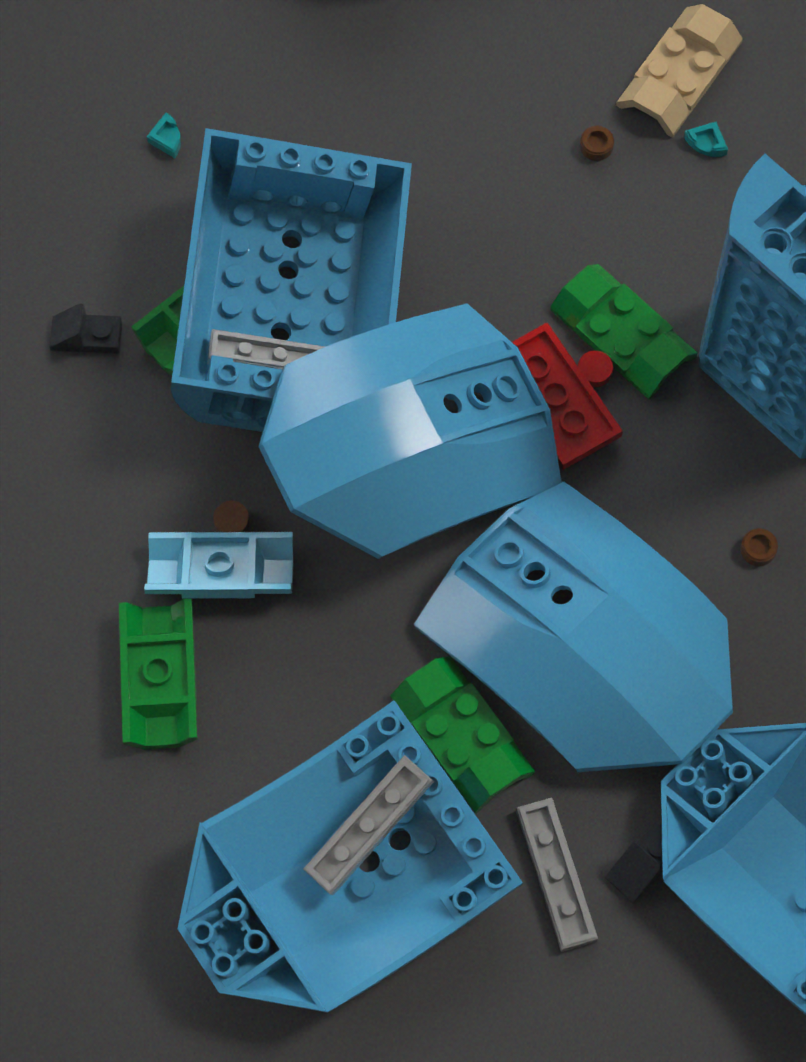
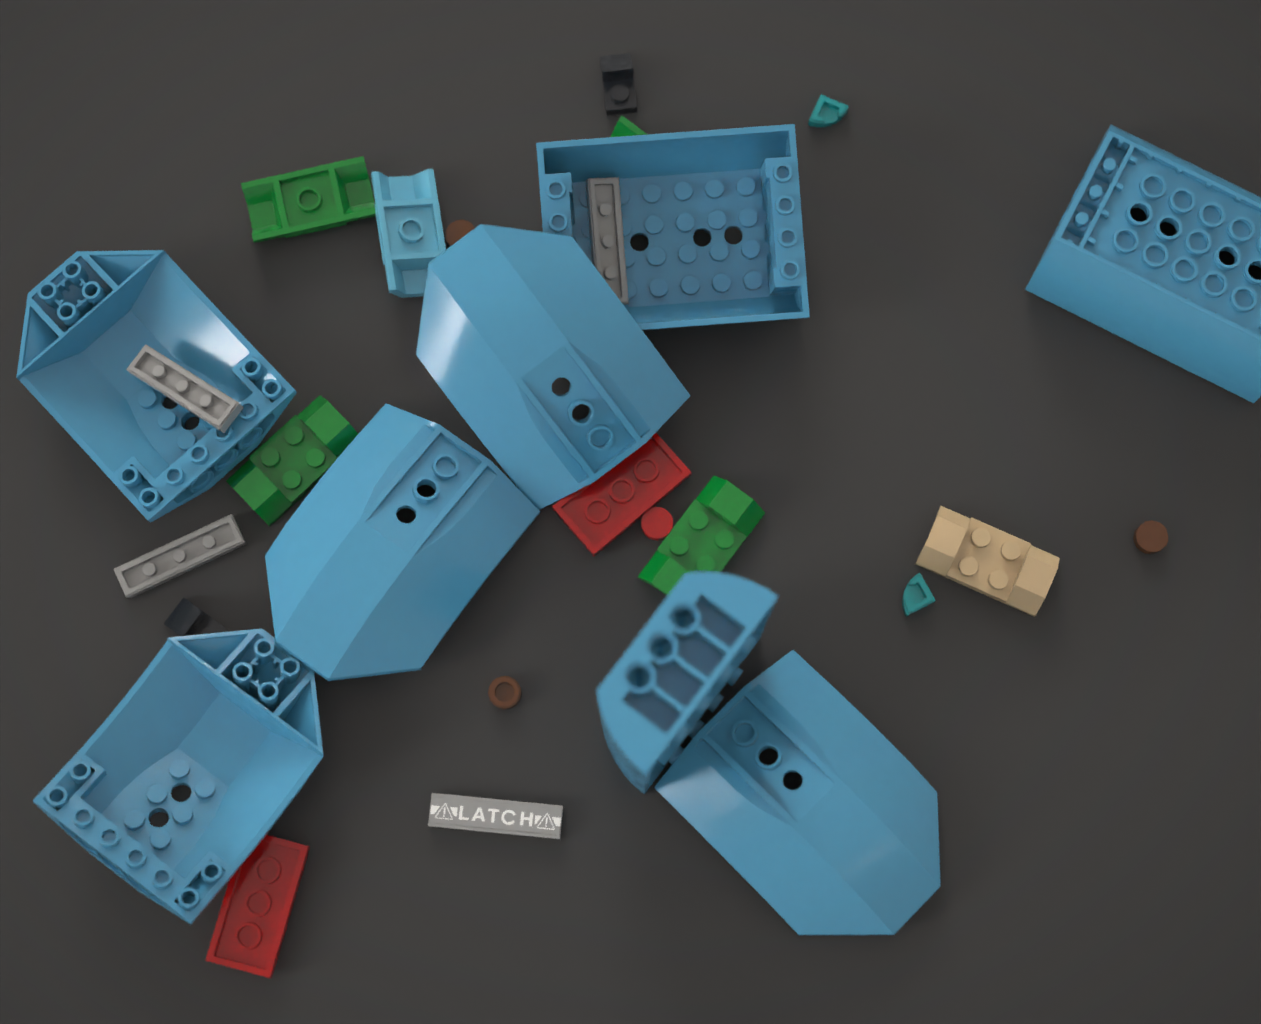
camera: 80 degrees right, 10 degrees up
(596, 143) = (893, 493): reddish brown tile -> none

